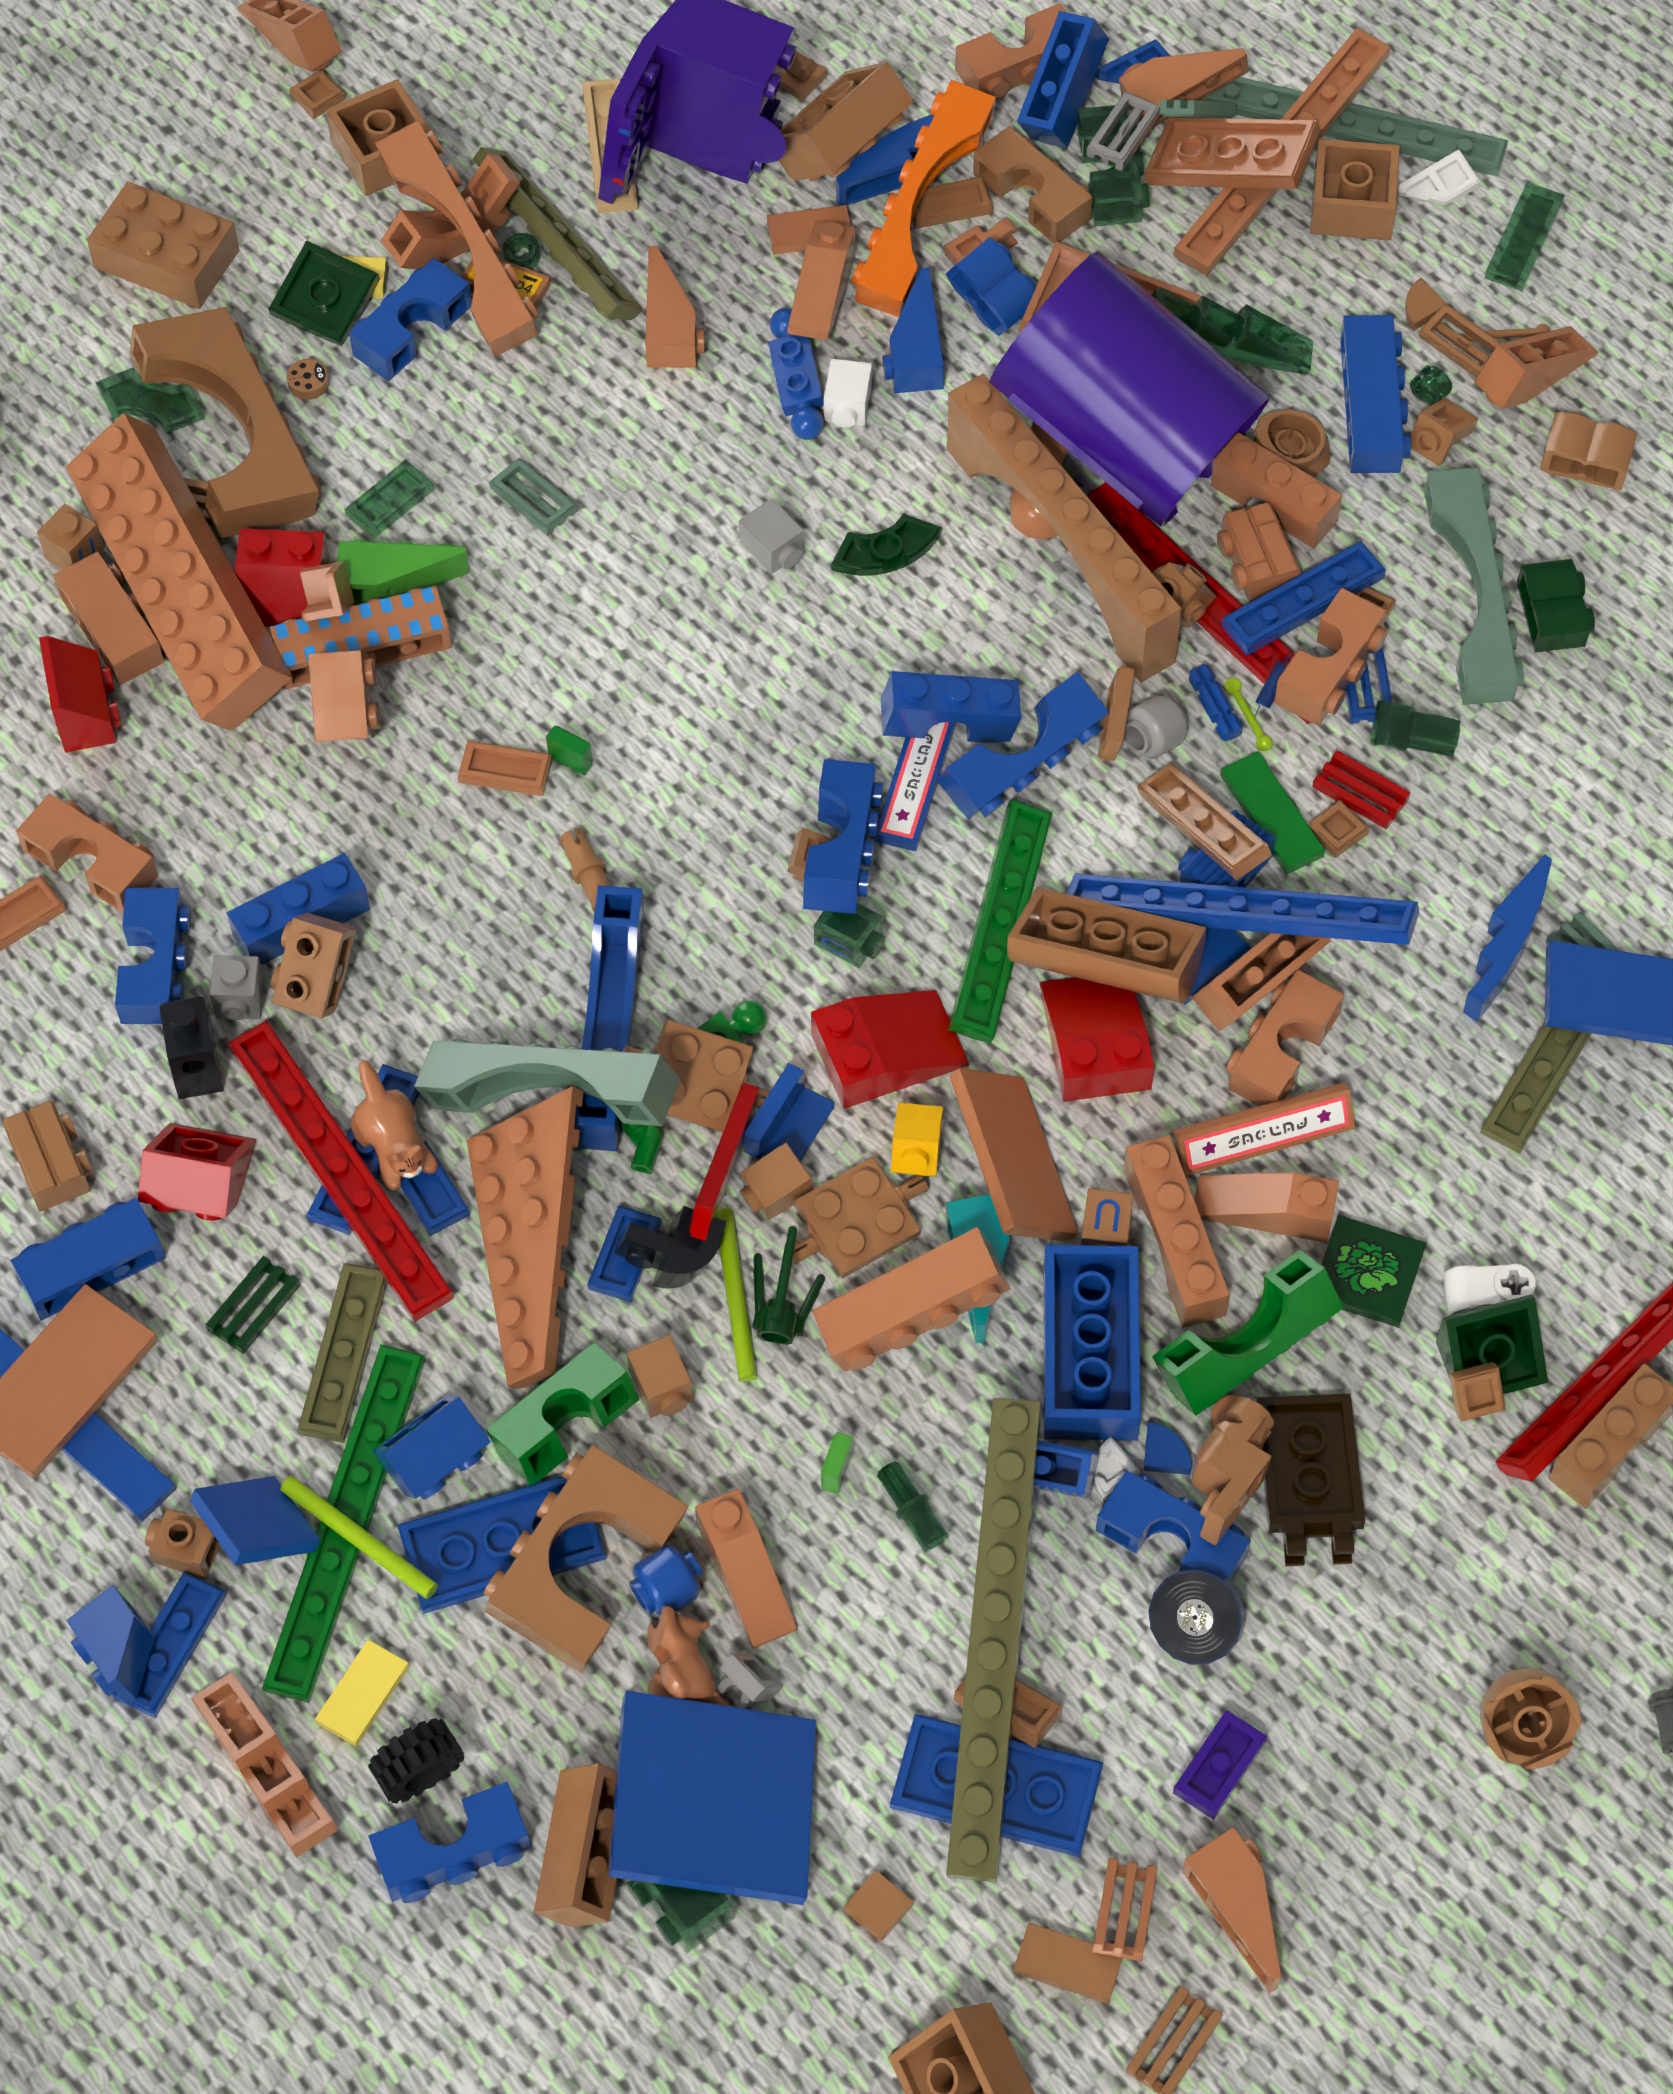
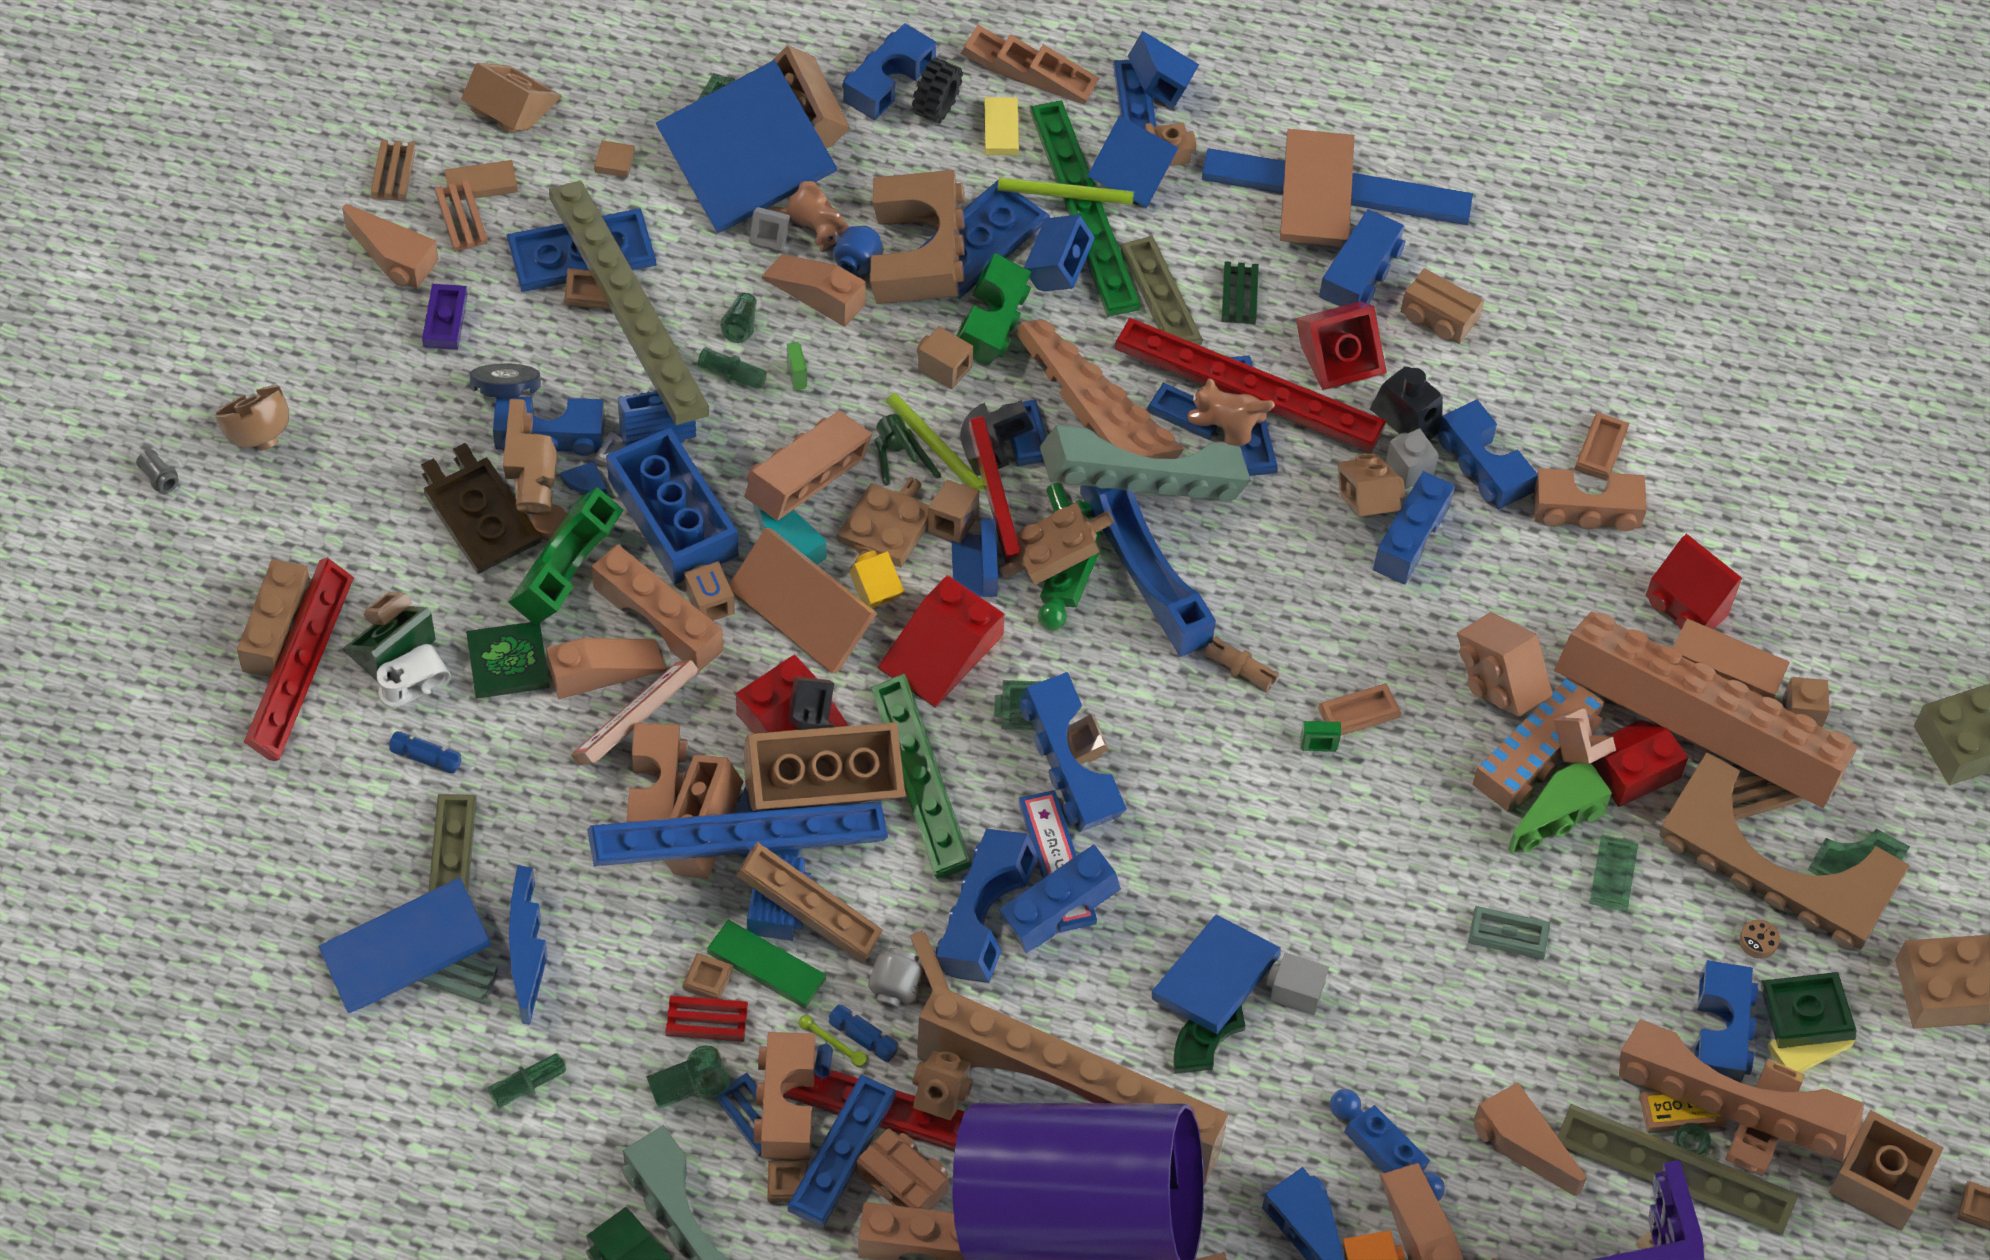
camera: 145 degrees right, 5 degrees down
(843, 583) = (1216, 973): none -> blue tile
(847, 393) = (1331, 1143): white brick -> none
(861, 1571) = (739, 320): none -> clear green cone
(1090, 999) = (810, 703): none -> black bracket
(1512, 1207) = (425, 752): none -> blue axle
(1571, 812) = (526, 1080): none -> clear green axle

